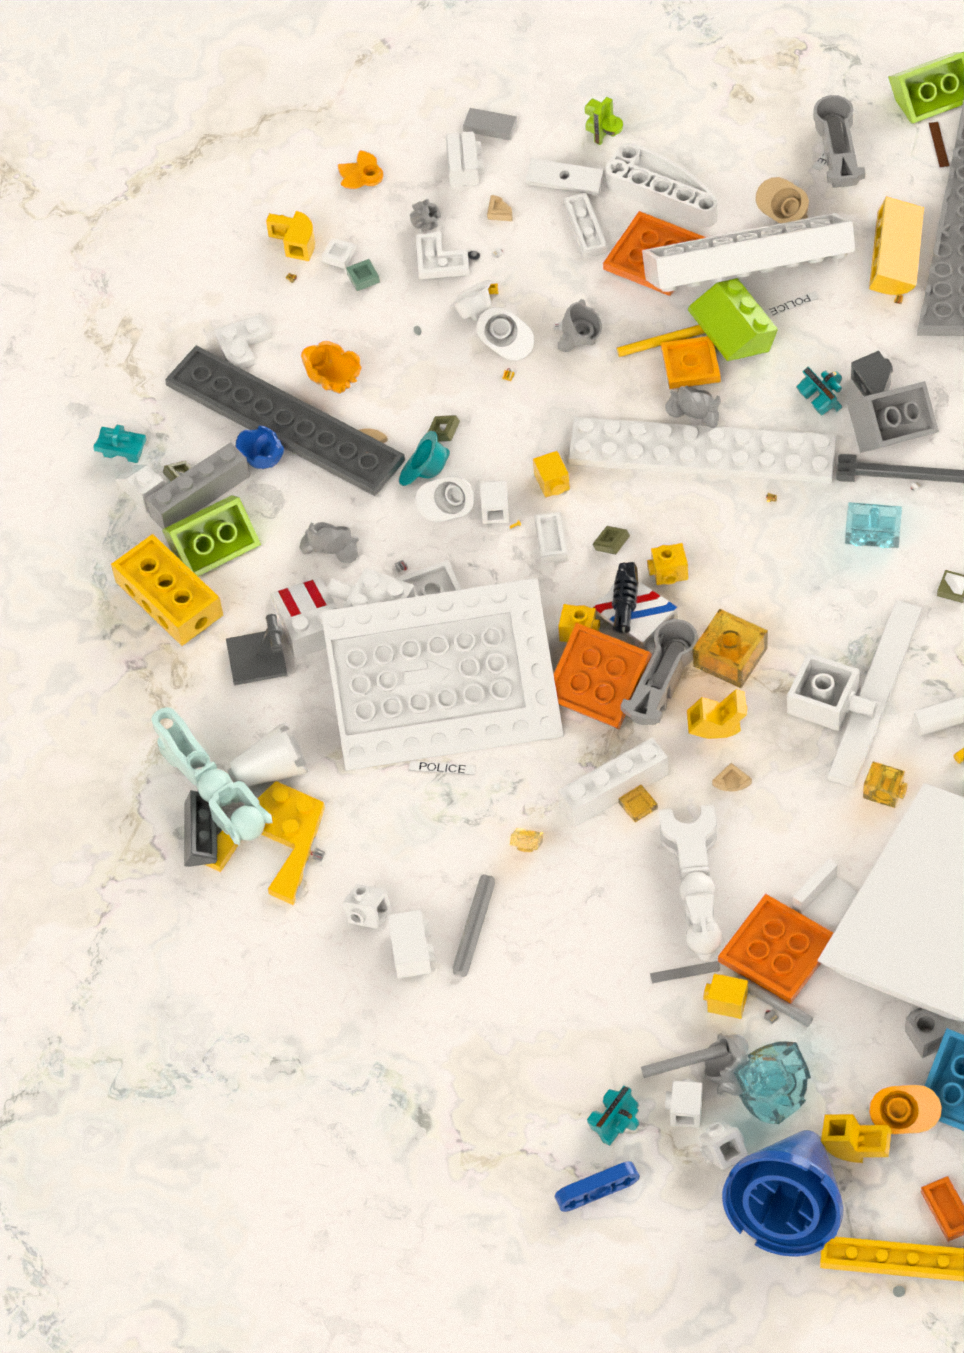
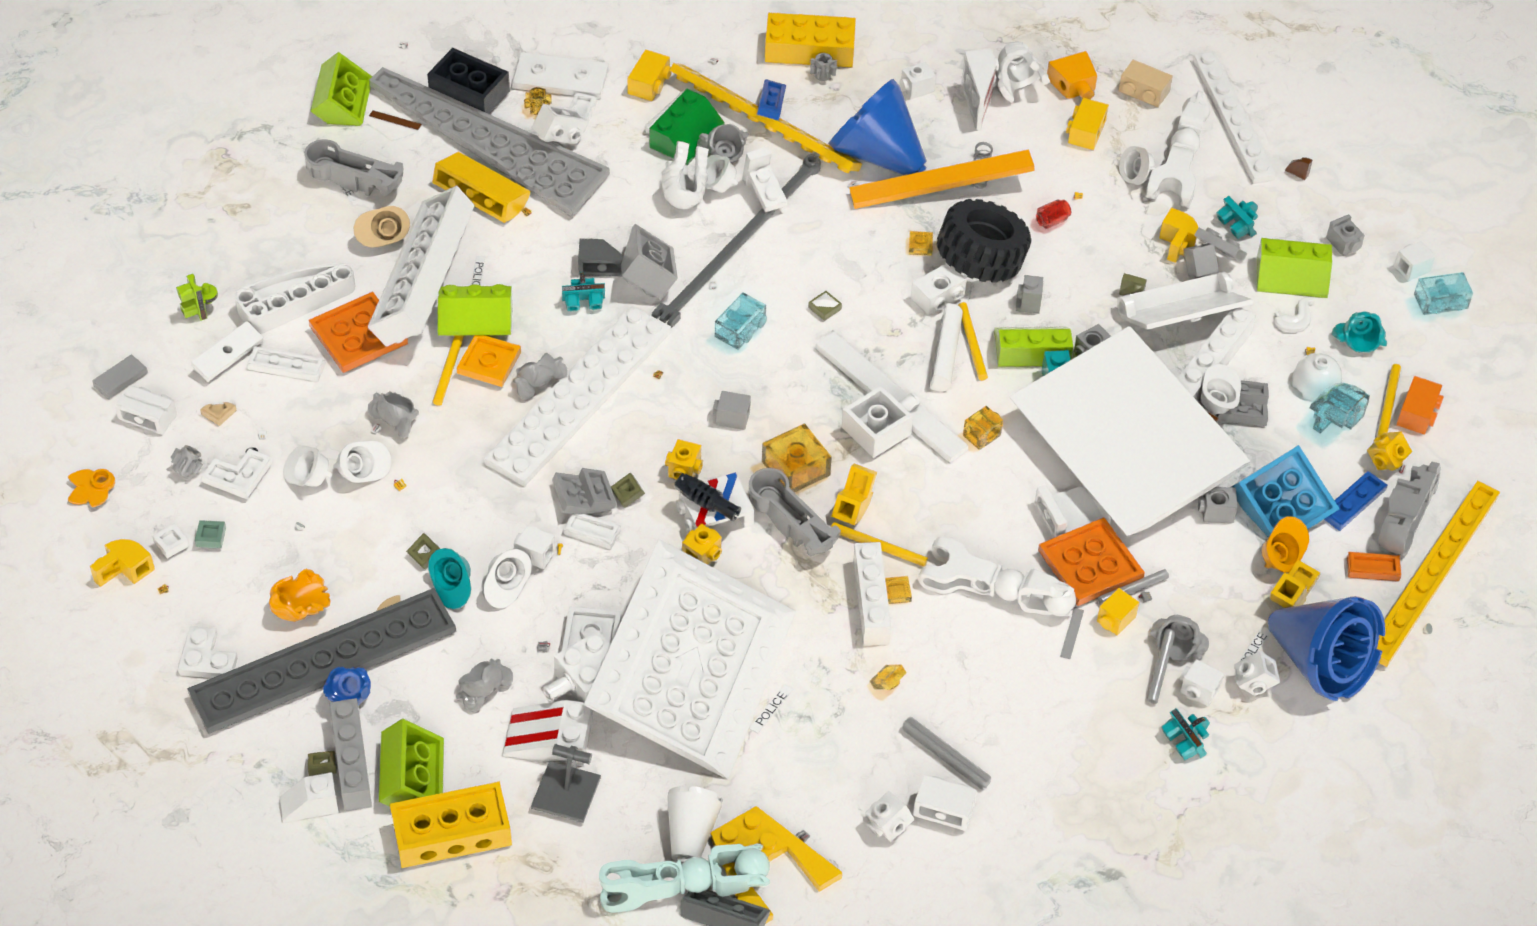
camera: 70 degrees left, 5 degrees down
(120, 443) = (253, 793): teal hips -> none
(551, 474) = (533, 498): yellow brick -> none
(585, 508) = (584, 492): none -> light grey slope
(596, 1186) = (1246, 776): blue beam -> none
(598, 674) = (765, 552): orange plate -> none
(683, 765) = (885, 546): none -> yellow bar
(731, 779) = (912, 520): tan tile -> none
(761, 573) = (732, 410): none -> light grey brick
(763, 1137) = (1257, 642): none -> white sticker
(773, 1081) = (1218, 614): clear light blue brick -> none

